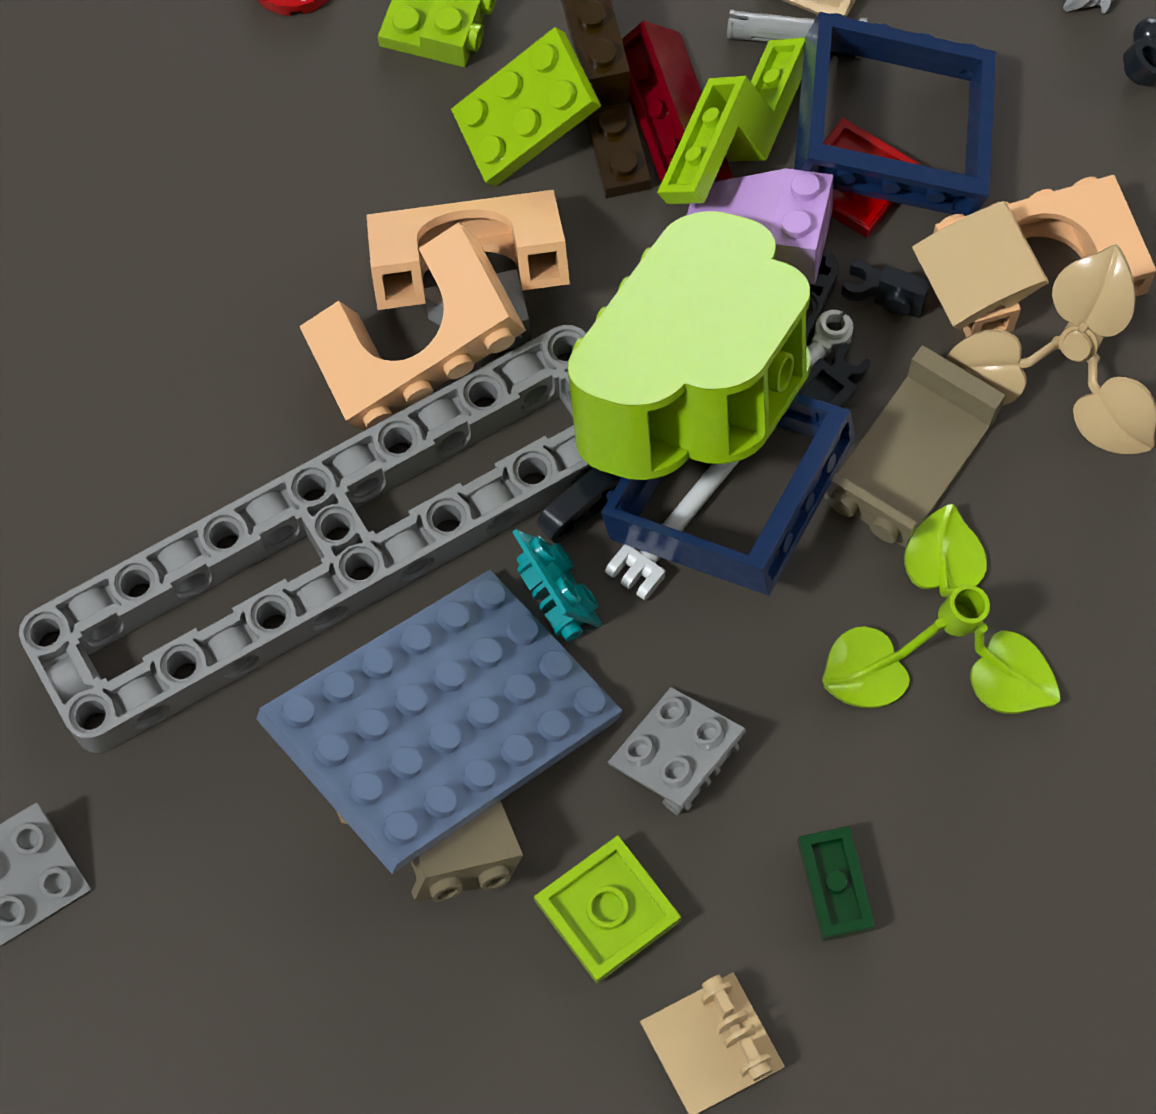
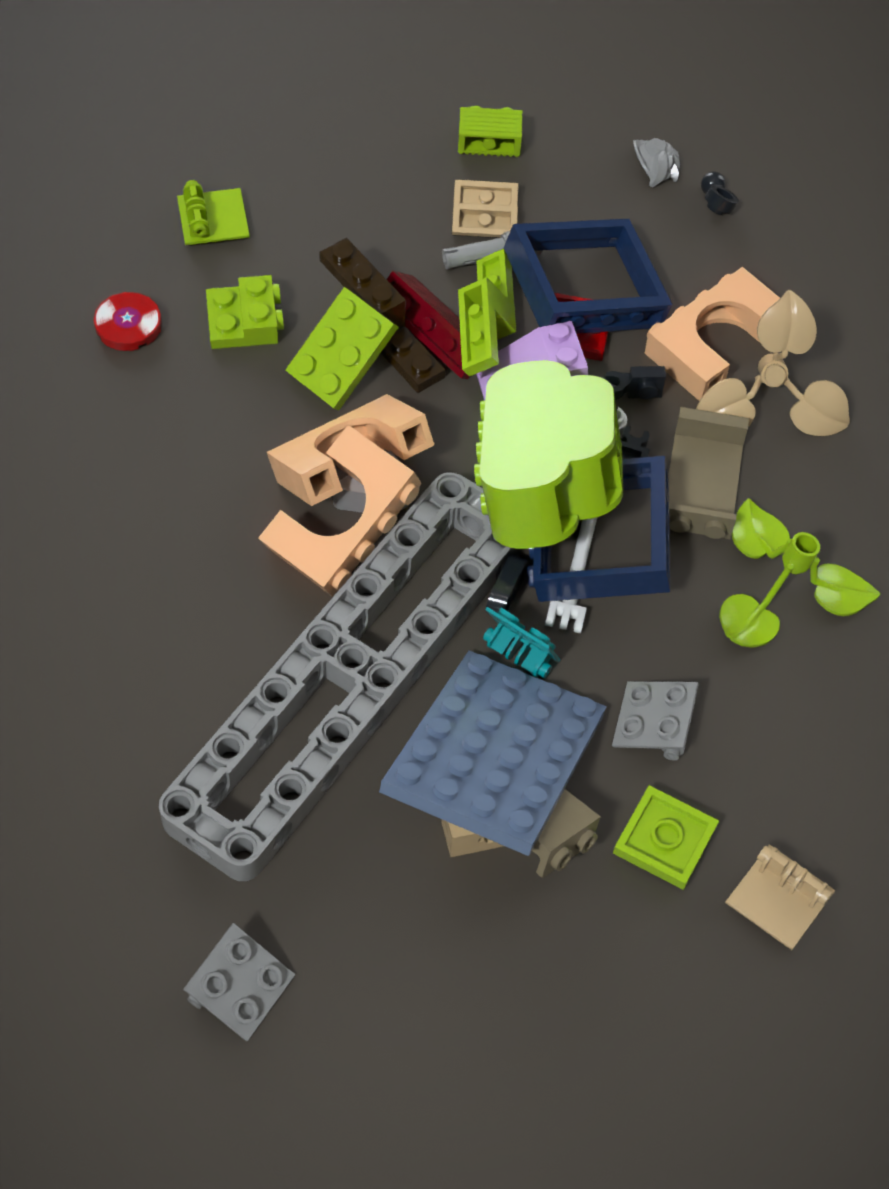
camera: 30 degrees left, 10 degrees down
(836, 883) = (804, 760): dark green plate -> none
(980, 264) = (692, 344): tan slope -> none

